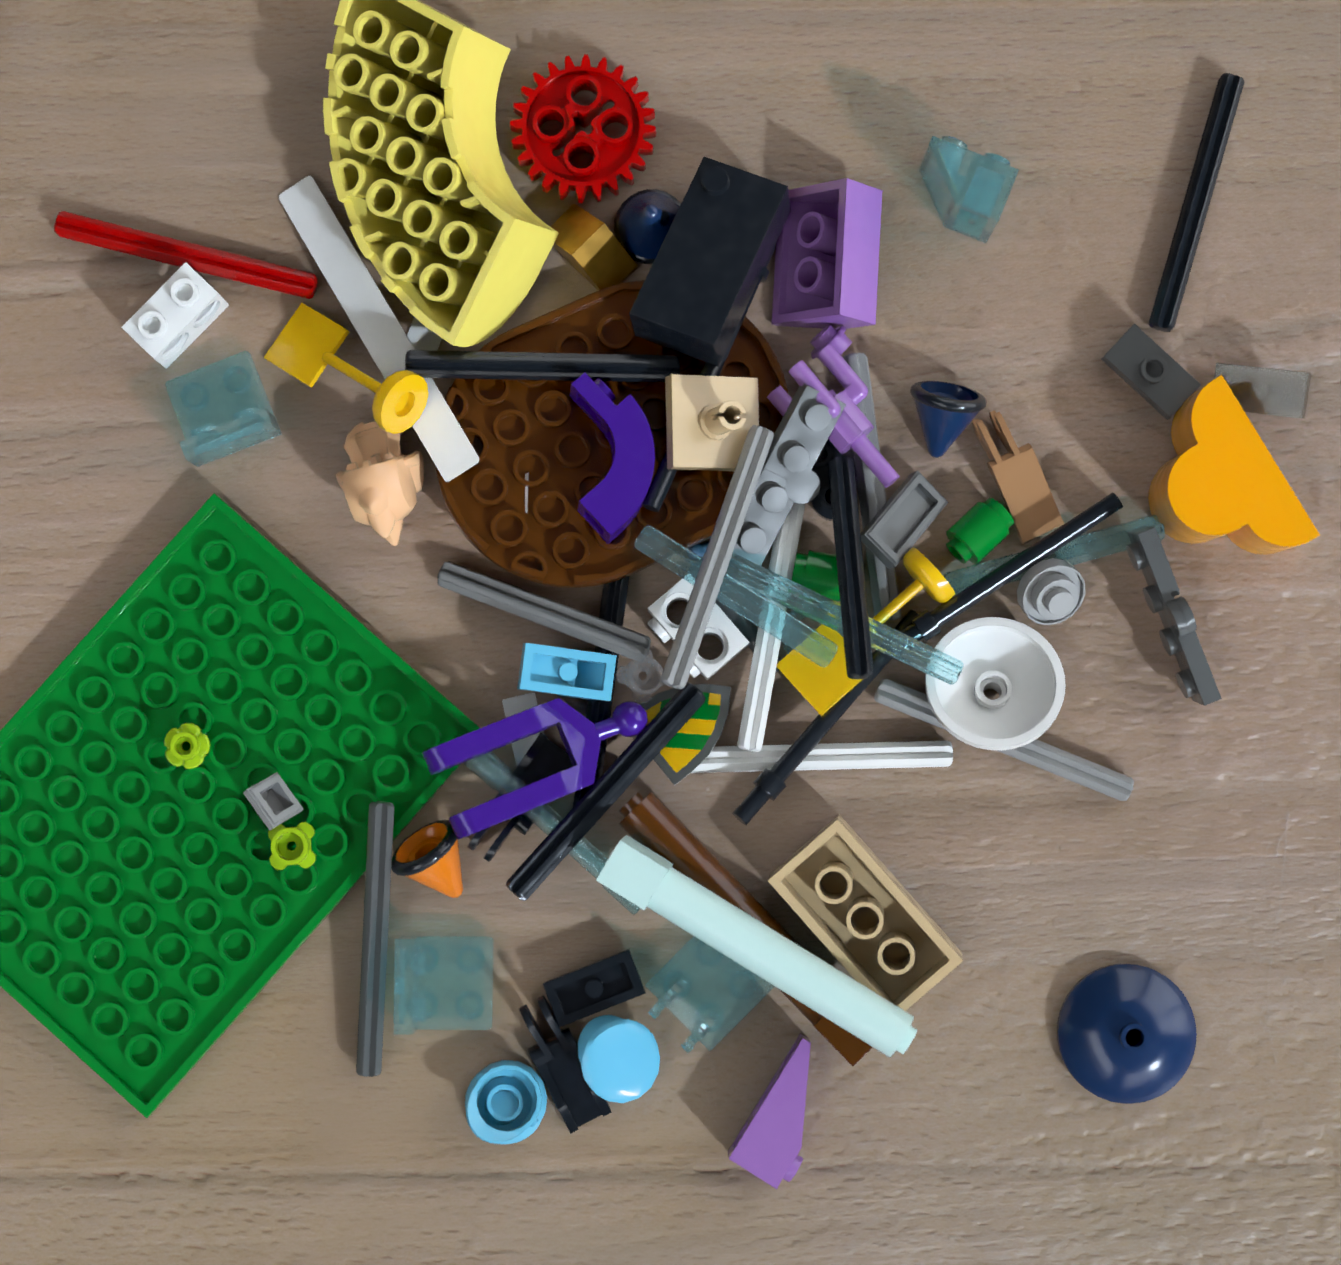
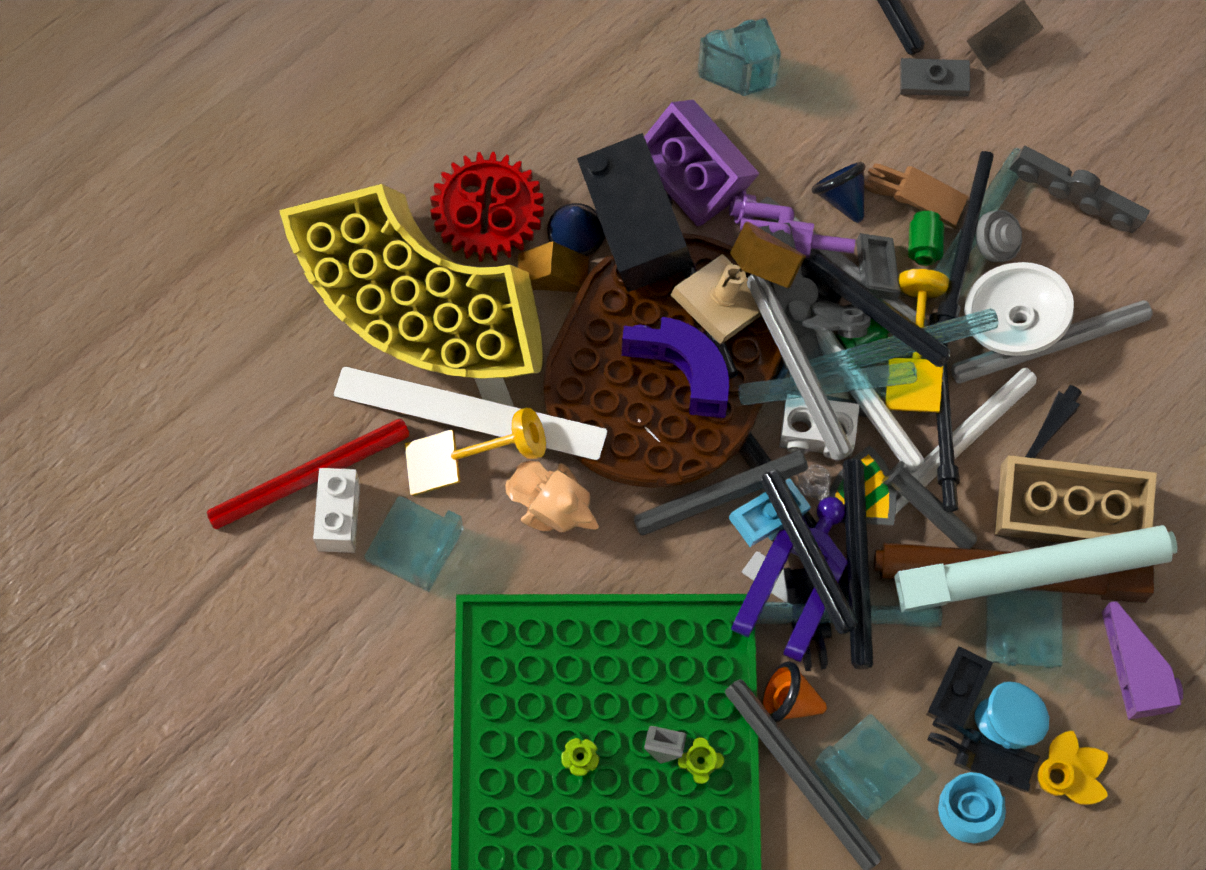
camera: 45 degrees left, 15 degrees down
(541, 366) = (591, 349): black axle -> none
(558, 745) = (809, 552): none -> black axle
(636, 1155) = (1078, 770): none -> yellow plate
(726, 796) = (930, 506): none -> dark grey axle
(783, 421) = (766, 256): none -> pearl gold slope
(806, 540) = (846, 319): none -> dark grey plate
(941, 815) = (1060, 412): none -> black piece
(1225, 480) = (1035, 92): light orange brick -> none

